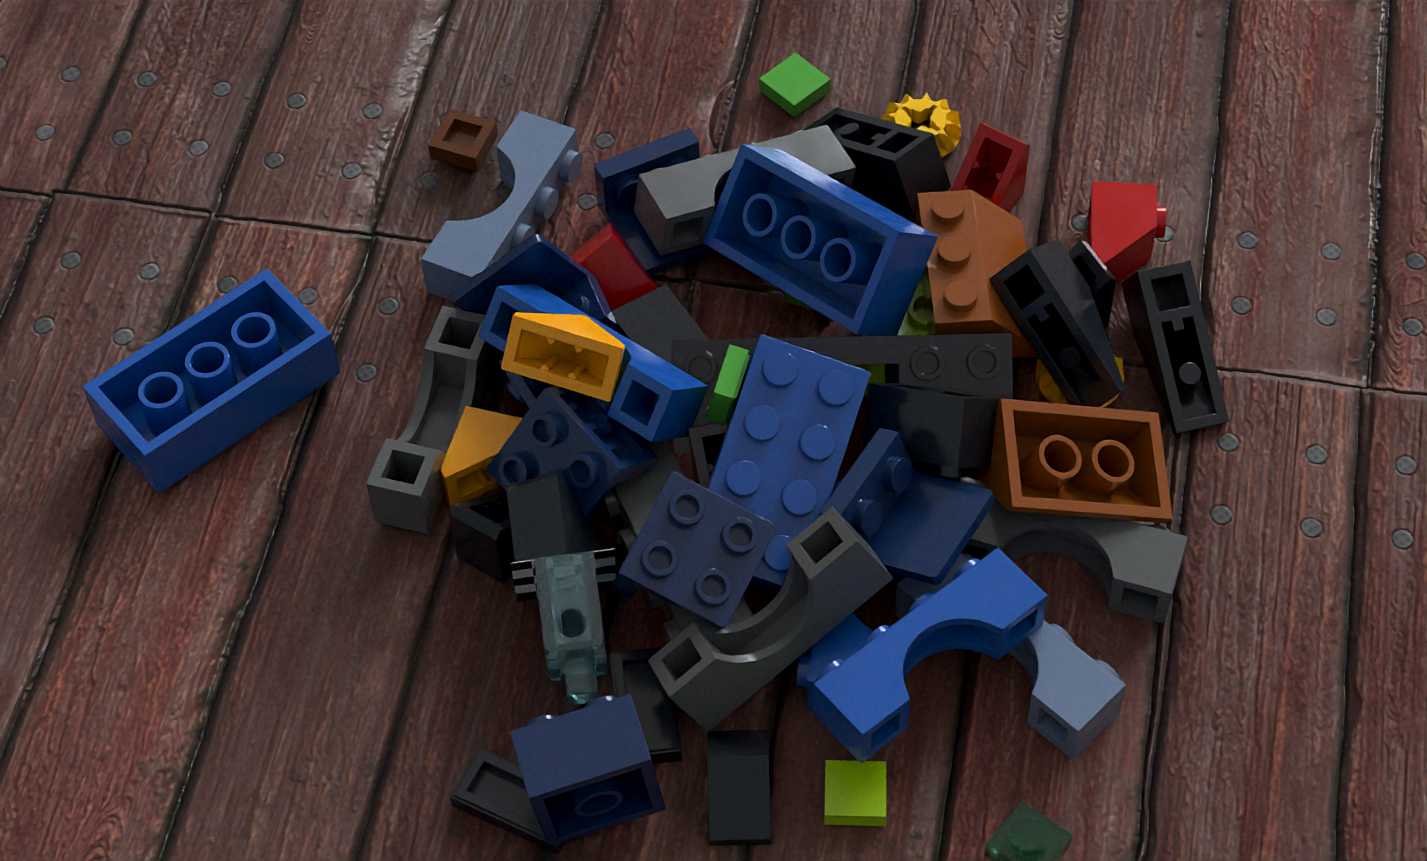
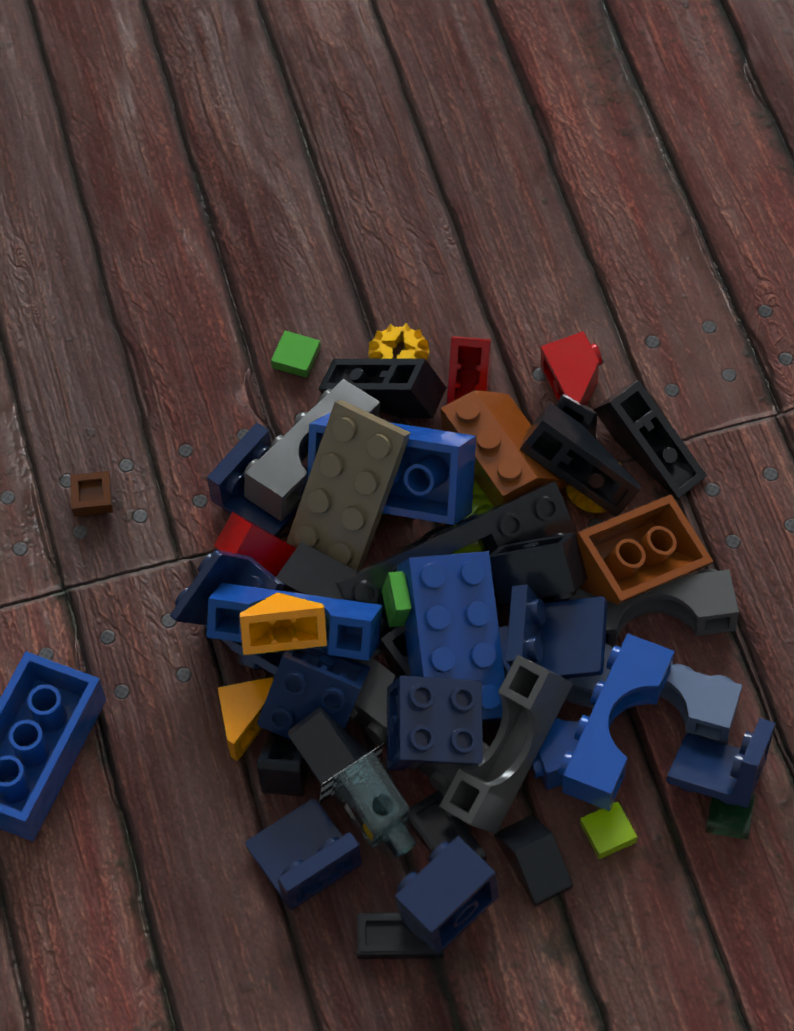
camera: 25 degrees left, 5 degrees up
(456, 373) = (199, 706): dark grey arch -> none
(457, 648) = (304, 853): none -> dark blue bracket
(536, 164) = (152, 575): sand blue arch -> none
(754, 234) = (349, 484): none -> dark tan plate
(1043, 781) = (721, 768): none -> dark blue bracket

